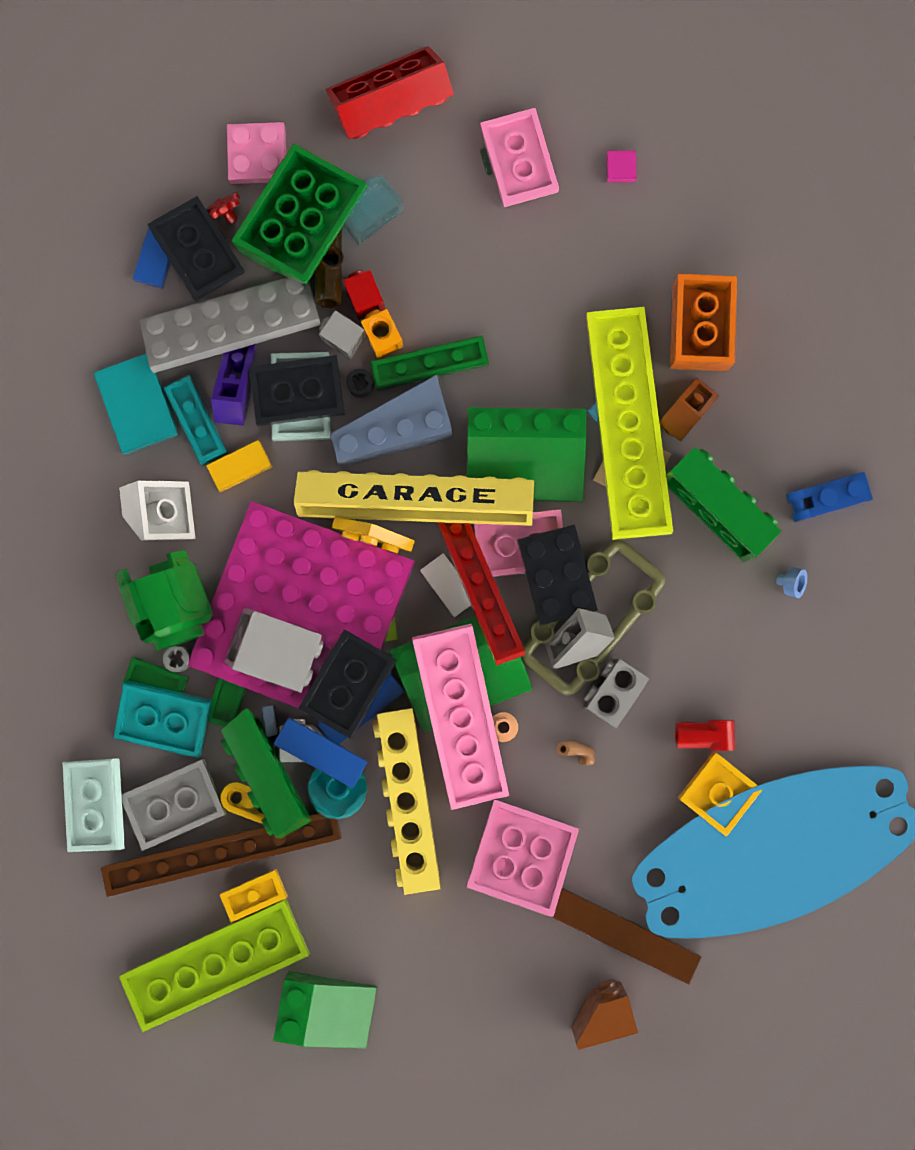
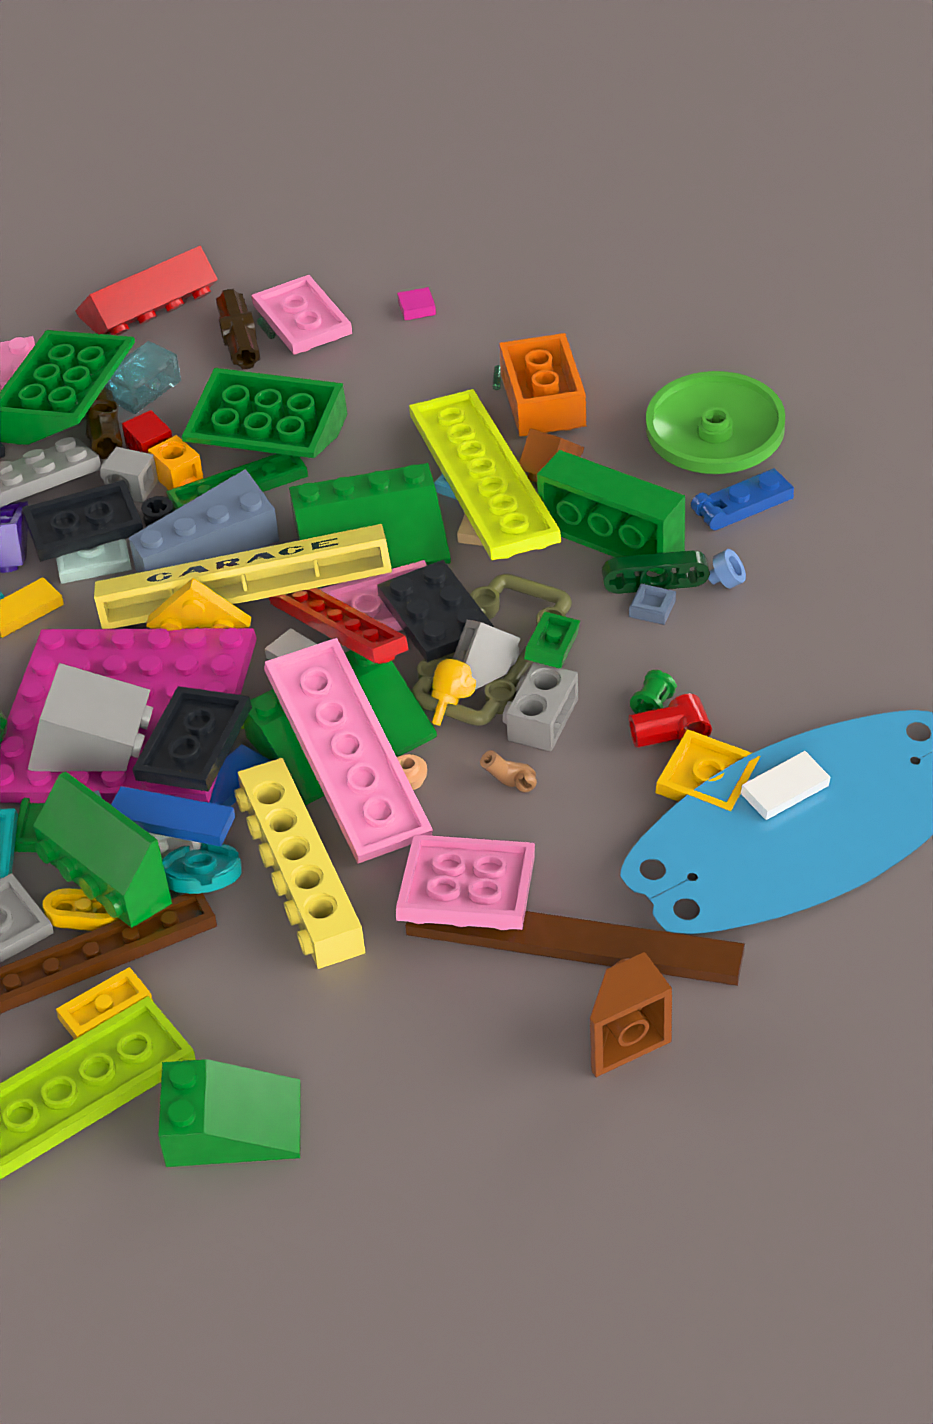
camera: 10 degrees left, 40 degrees down
(461, 163) = (238, 329): none -> dark brown piece
(463, 306) = (267, 413): none -> green slope
(551, 668) = (450, 682): none -> yellow piece
(639, 639) = (552, 640): none -> green plate
(668, 285) = (497, 377): none -> clear green piece
(701, 702) = (652, 692): none -> green bush
(726, 596) = (652, 604): none -> sand blue tile
(737, 568) = (643, 563): none -> dark green beam
(771, 827) = (785, 785): none -> white tile
(833, 412) = (715, 422): none -> bright green dish

